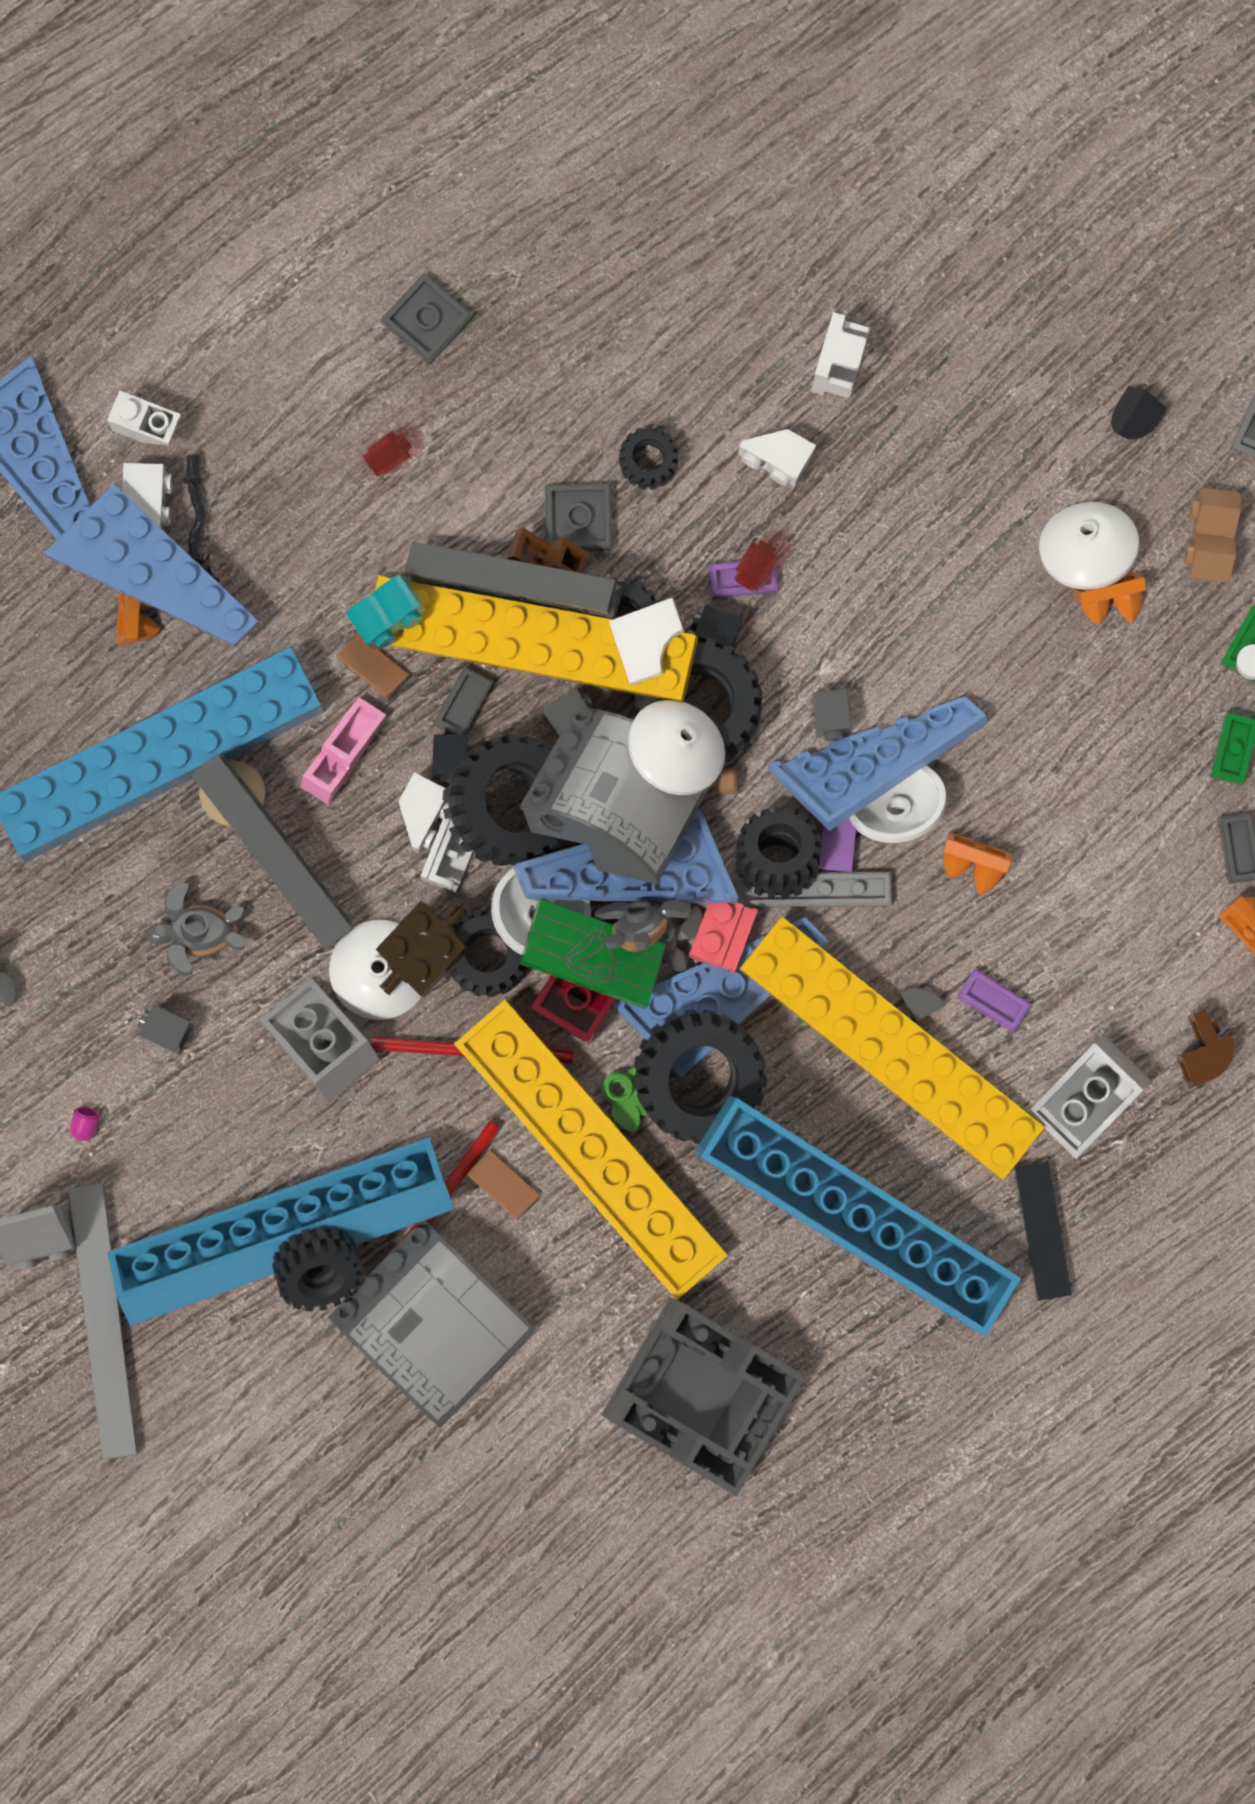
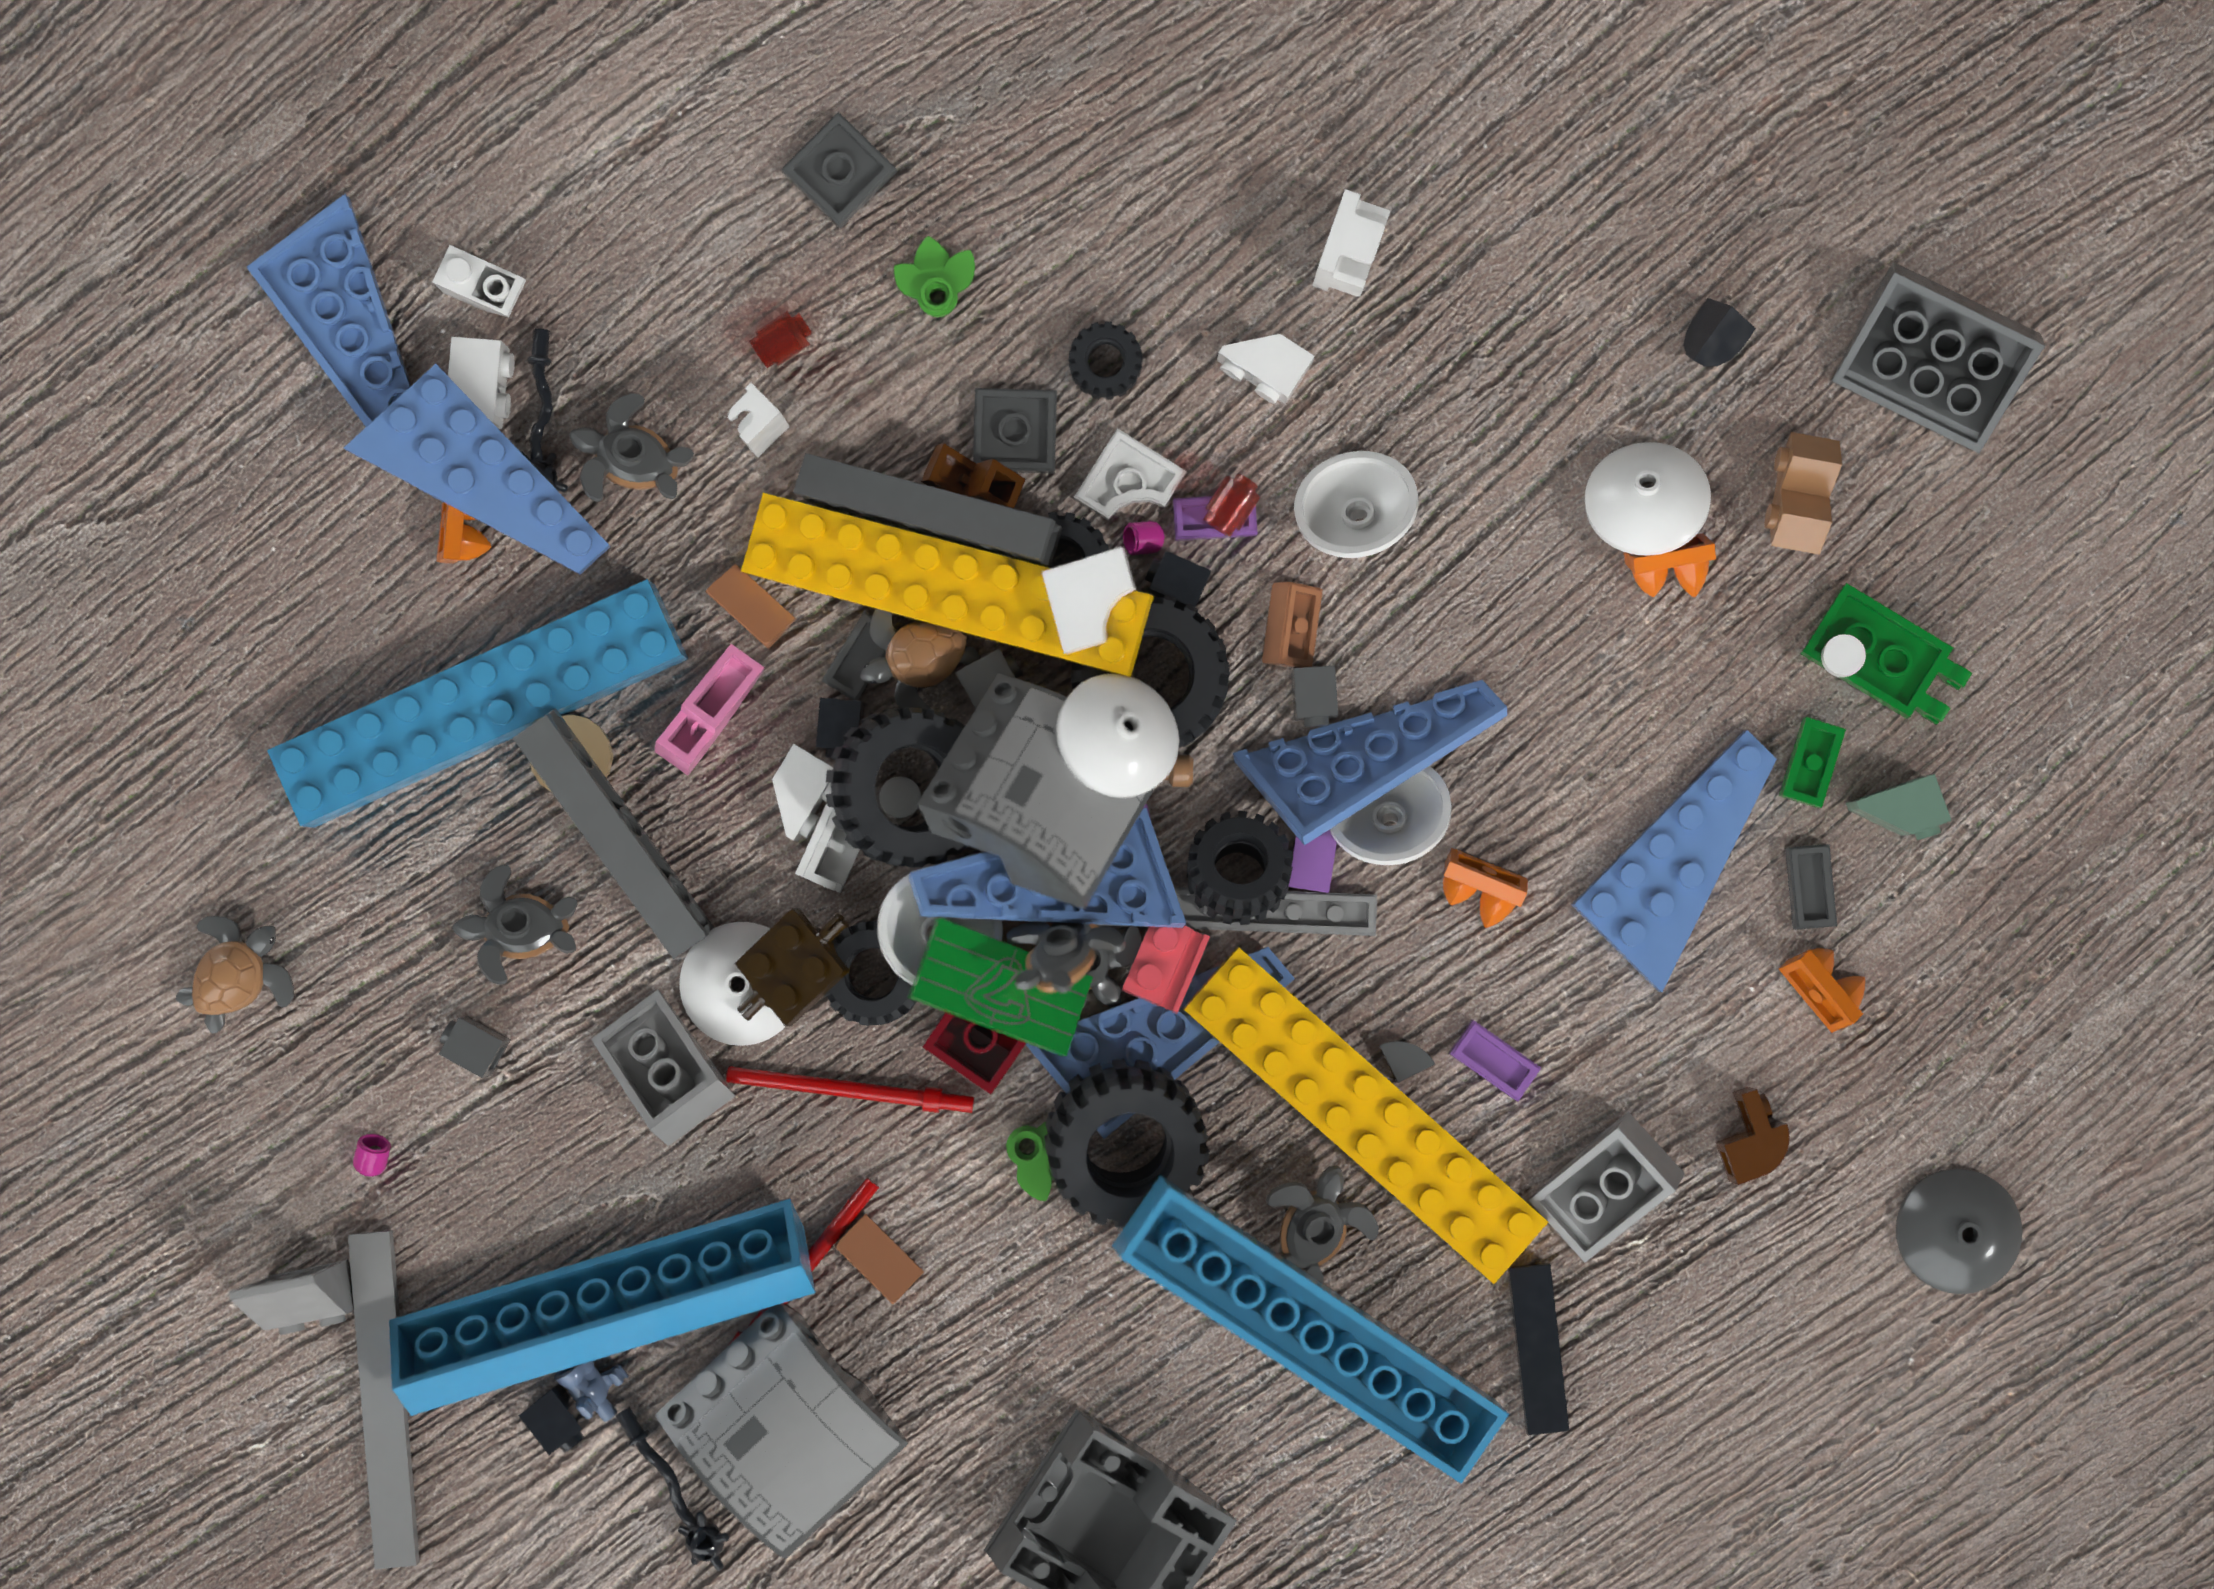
camera: 10 degrees right, 5 degrees up
(245, 1329) = (555, 1421): none -> black brick
(269, 550) = (628, 454): none -> dark grey animal
(269, 1301) = (591, 1388): none -> sand blue piece
(323, 1284) = (642, 1360): black tyre -> none
(370, 1418) = (702, 1537): none -> black piece
(376, 520) = (762, 424): none -> white hinge
(387, 612) = (768, 542): teal brick -> none
(503, 811) = (900, 797): none -> white tile
(508, 395) = (935, 272): none -> bright green plate
(509, 698) = (916, 656): none -> medium nougat animal
(591, 1149) = (988, 1222): yellow plate -> none
(671, 548) = (1128, 475): none -> white tile
(690, 596) = (1148, 537): none -> dark pink piece
(809, 660) = (1292, 625): none -> nougat slope
(856, 560) = (1351, 489): none -> white dish
(856, 1135) = (1317, 1221): none -> dark grey animal
(1121, 848) = (1664, 878): none -> medium blue wing

